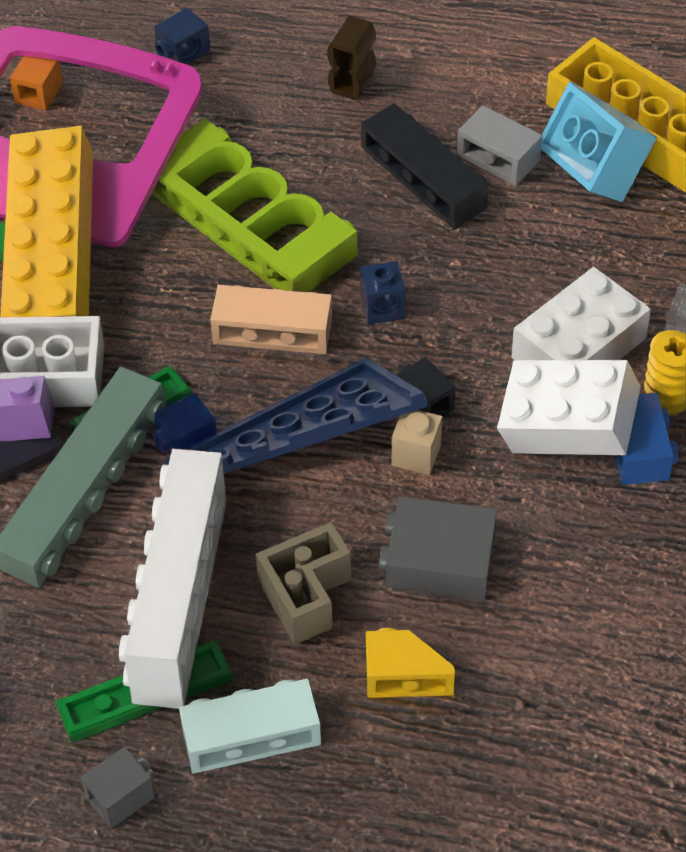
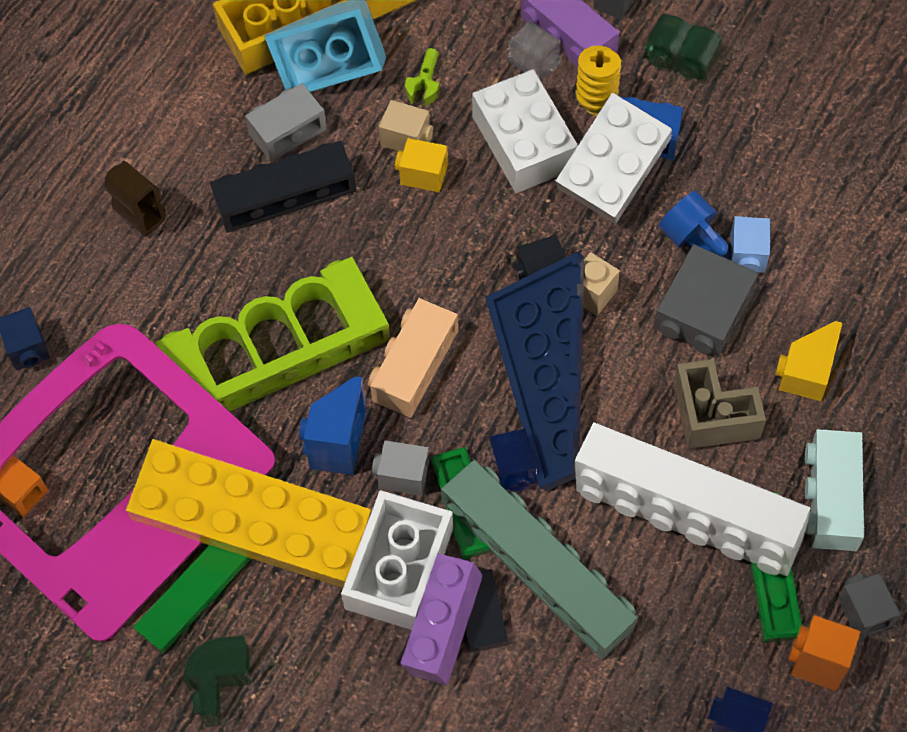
camera: 70 degrees left, 10 degrees up
(39, 743) = (823, 652): none -> orange brick
(146, 343) = (402, 467): none -> light grey brick
(165, 273) = (335, 428): none -> blue slope
(382, 292) = (422, 261): dark blue brick -> none
(500, 264) = (422, 164): none -> yellow brick
(530, 507) = (690, 225): none -> blue piece
(530, 572) = (750, 242): none -> light blue brick
(537, 237) = (404, 122): none -> tan brick
(607, 241) = (424, 79): none -> lime bar

